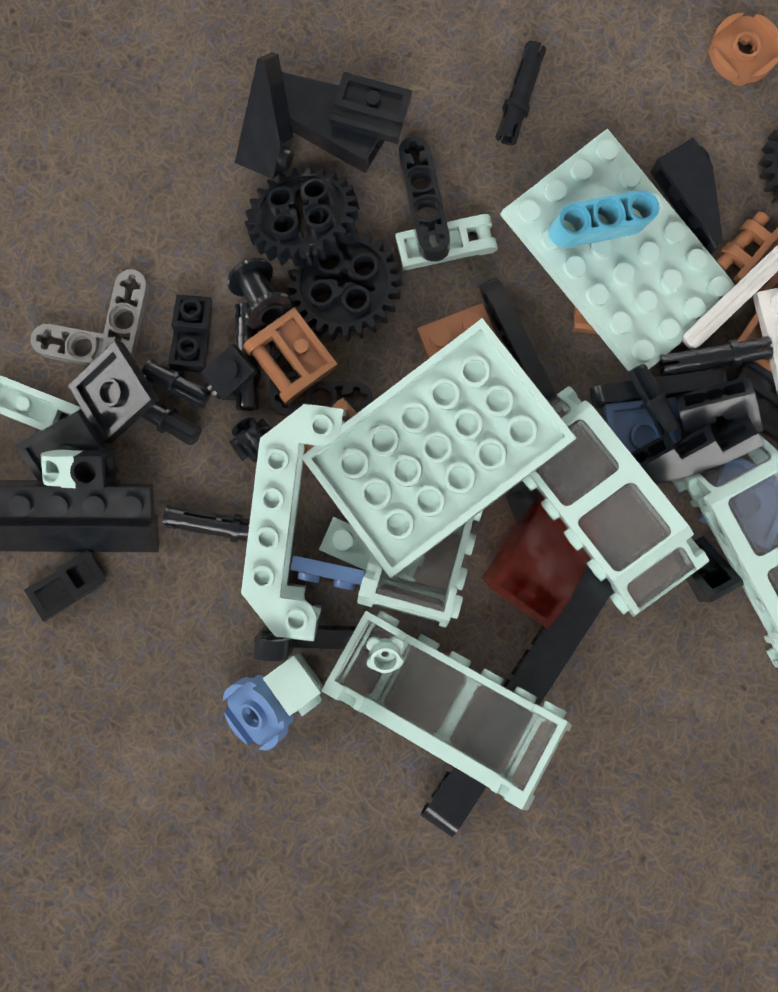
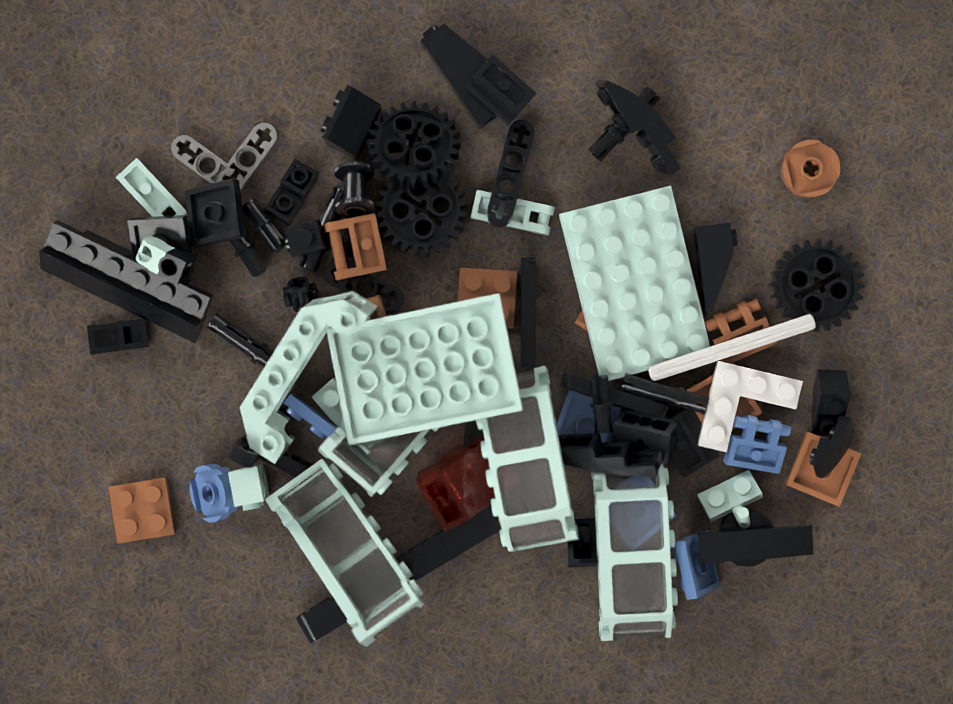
camera: 25 degrees right, 5 degrees up
(183, 773) = (142, 510): none -> nougat plate
(219, 221) = (350, 122): none -> black slope
(267, 123) = (419, 65): black slope -> none
(384, 662) = (319, 500): light aqua plate -> none
(534, 67) = (636, 115): none -> black slope
(614, 208) = (641, 259): medium azure beam -> none

